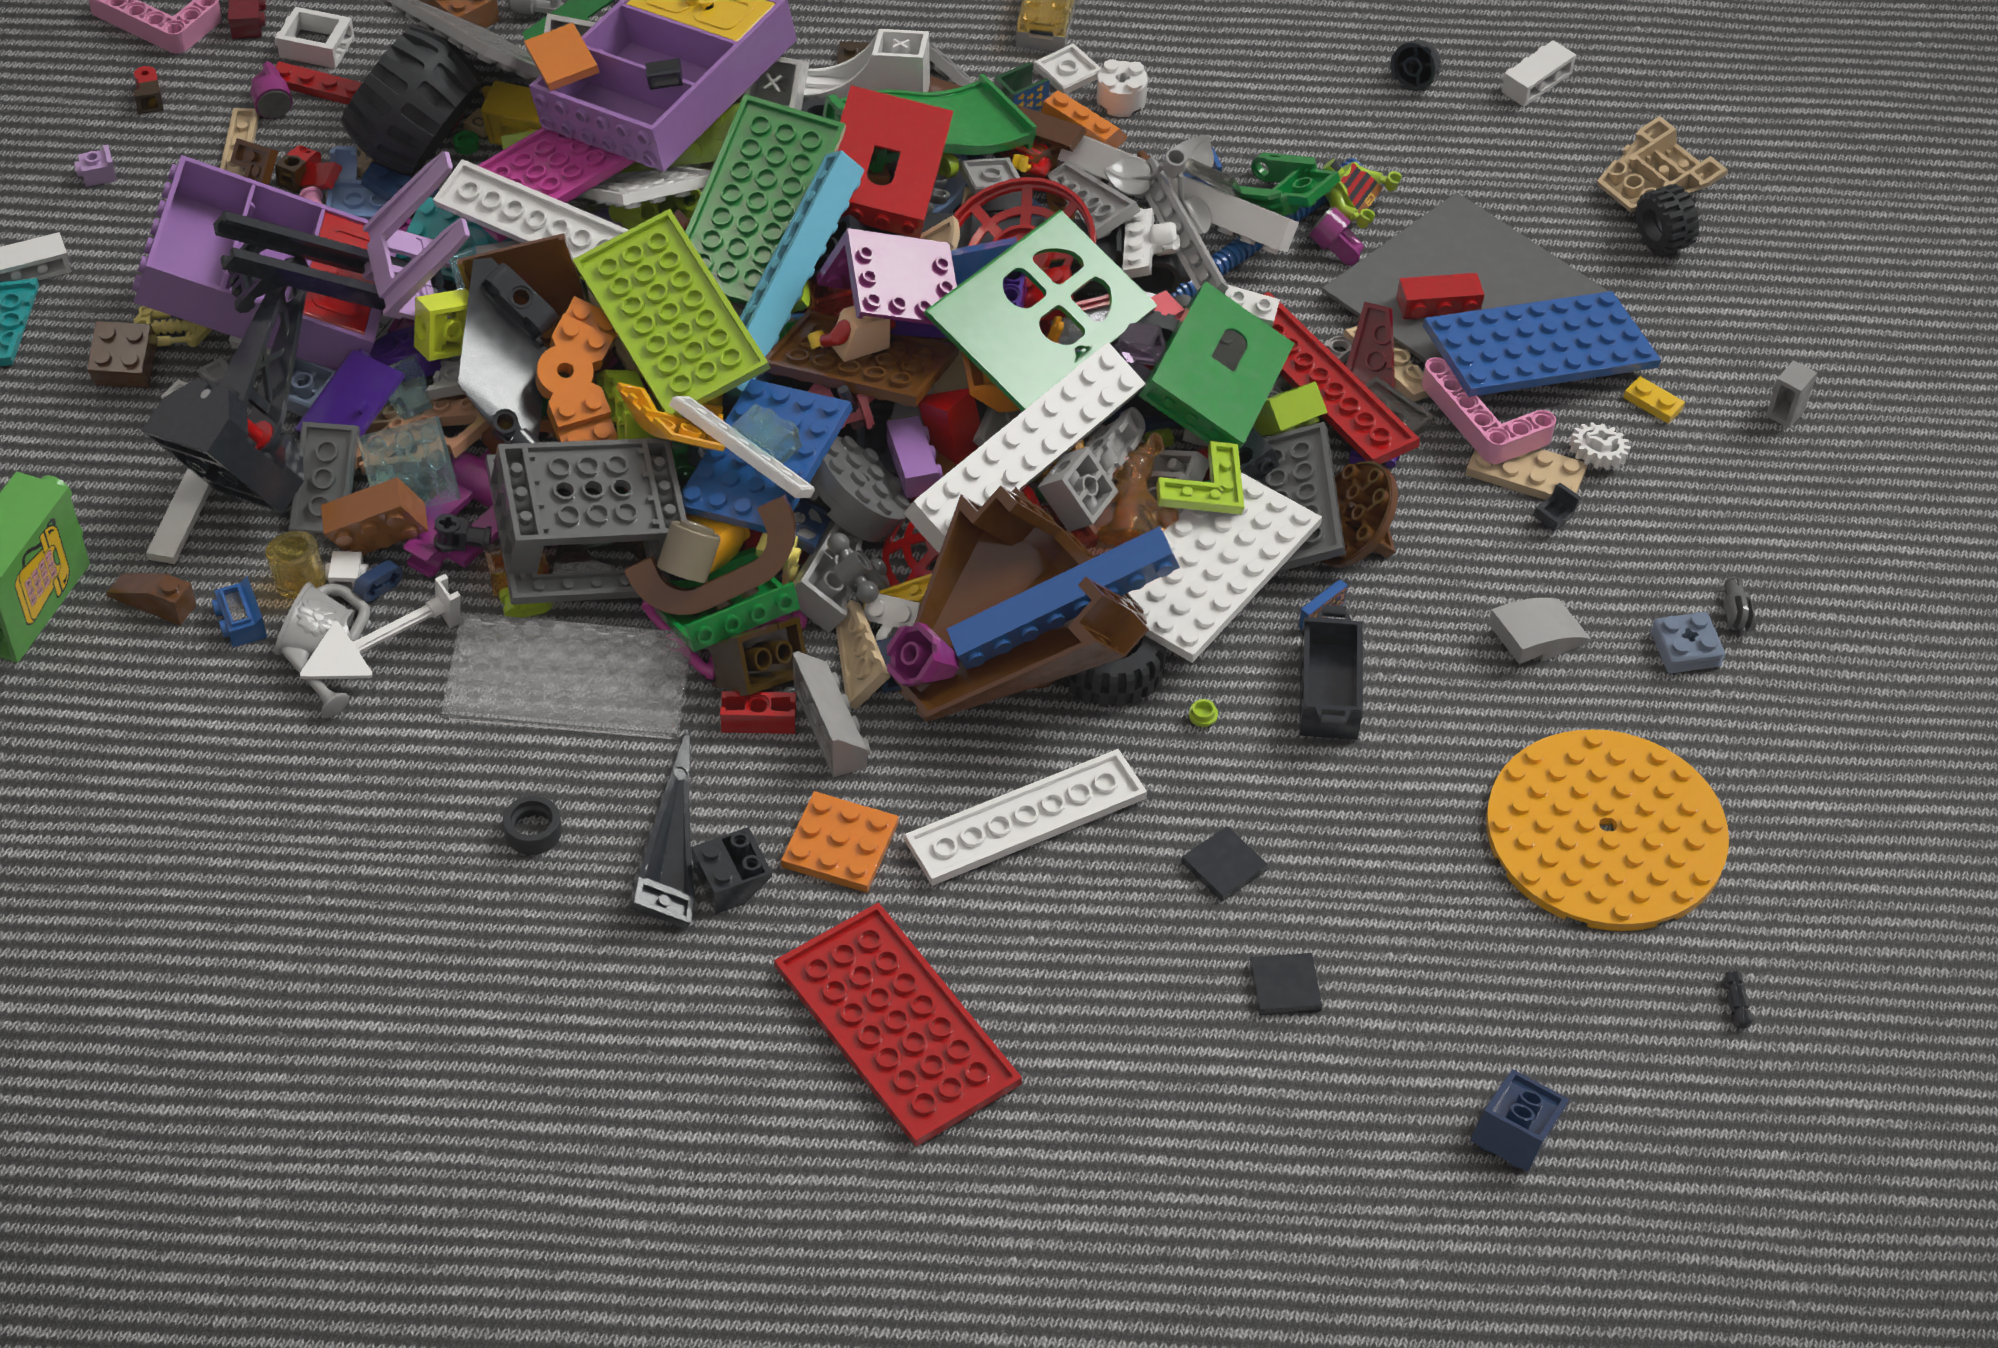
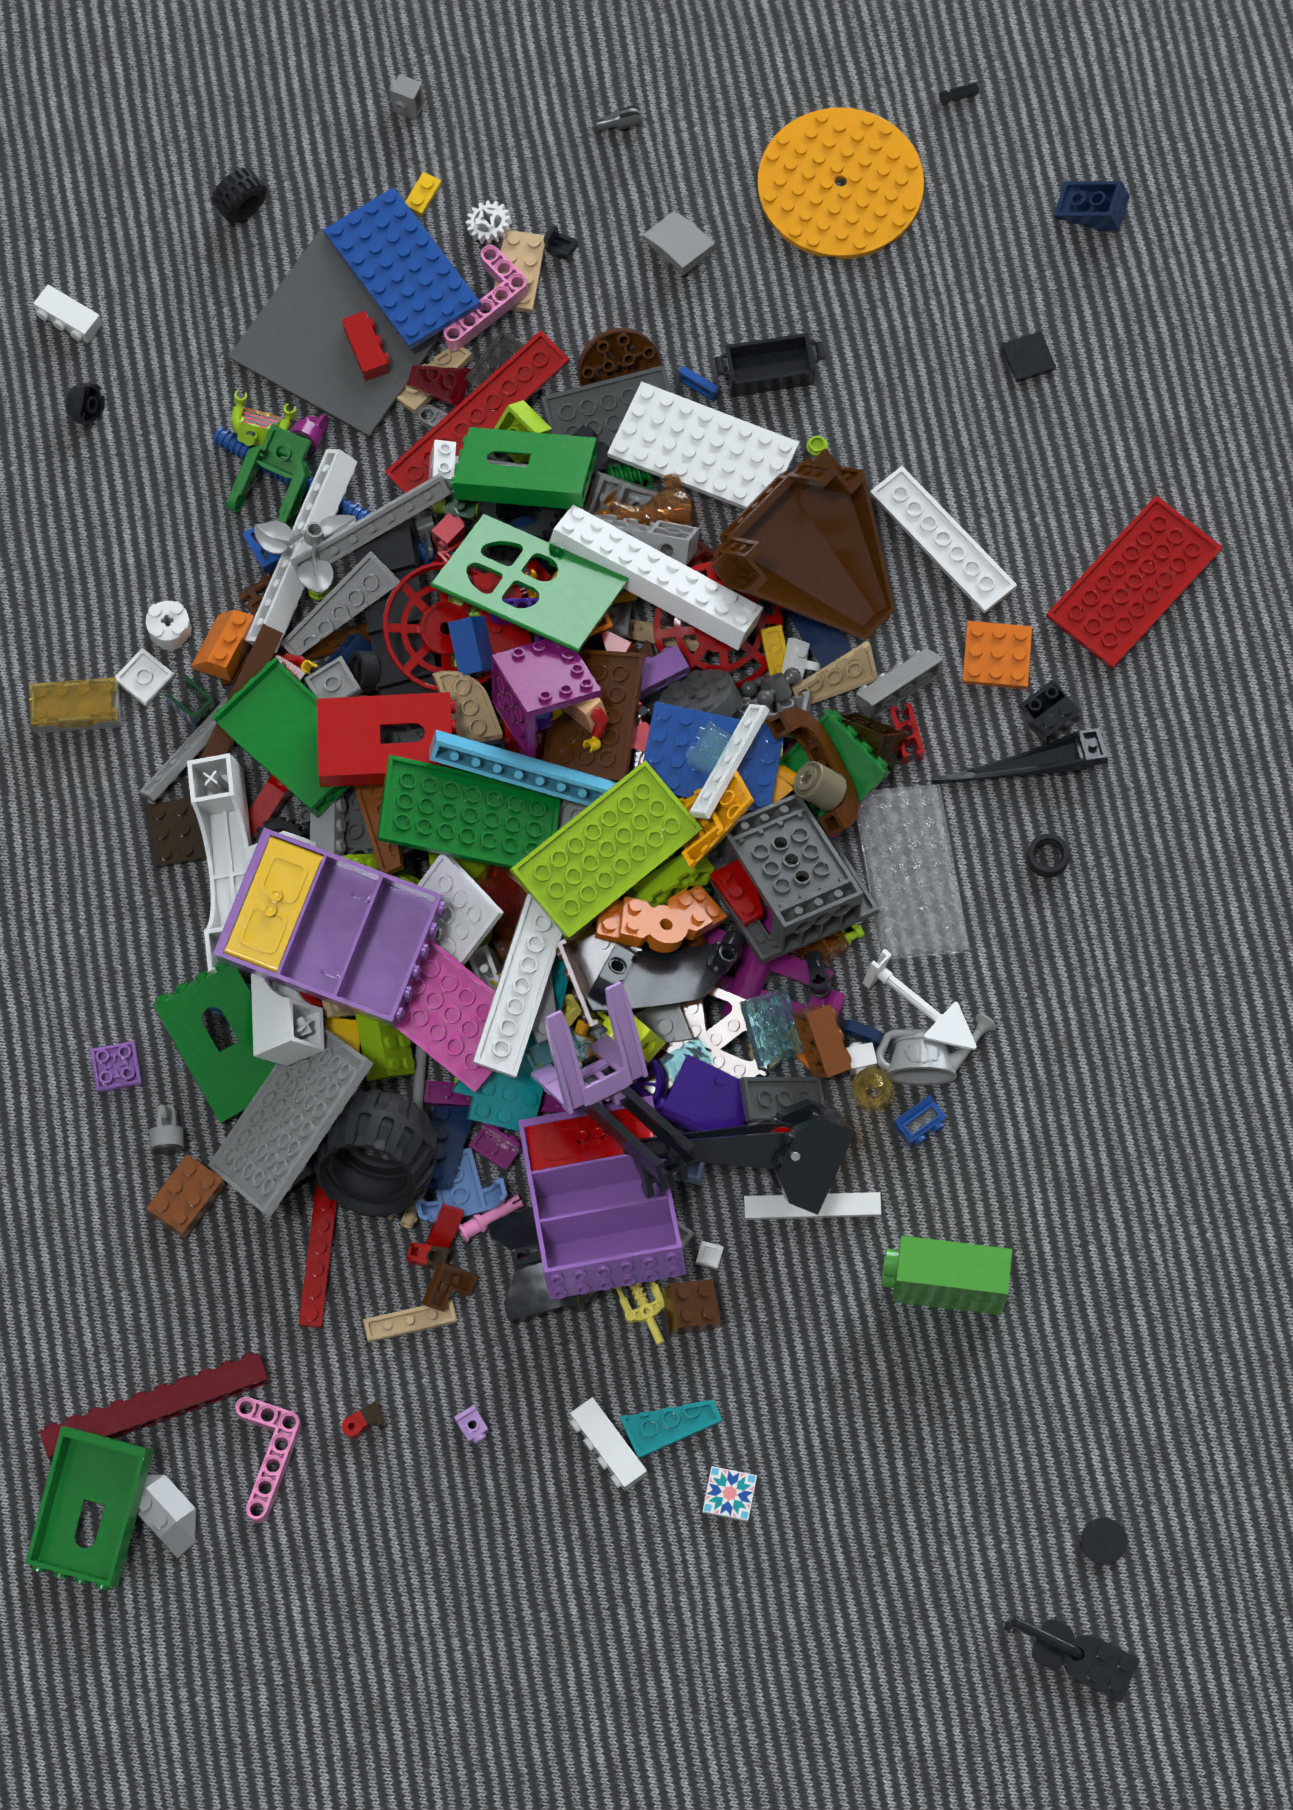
camera: 100 degrees left, 20 degrees up
(155, 594) = (919, 1194): reddish brown slope -> none
(270, 93) = (354, 1308): piece -> none
(313, 52) = (261, 1280): white window -> none
(561, 56) = (357, 1001): orange tile -> none
(664, 74) = (376, 900): black piece -> none
(920, 656) = (863, 612): magenta cone -> none
(1060, 598) = (796, 521): blue brick -> none
(1142, 343) = (532, 515): clear purple brick -> none
(1146, 239) = (398, 546): white plate -> none
(1213, 177) = (302, 511): clear smoke tile -> none
(1221, 495) = (647, 441): lime plate -> none
(1224, 863) = (942, 410): black tile -> none
(1656, 162) = (176, 210): tan wedge -> none
(1687, 642) = (651, 144): sand blue brick -> none

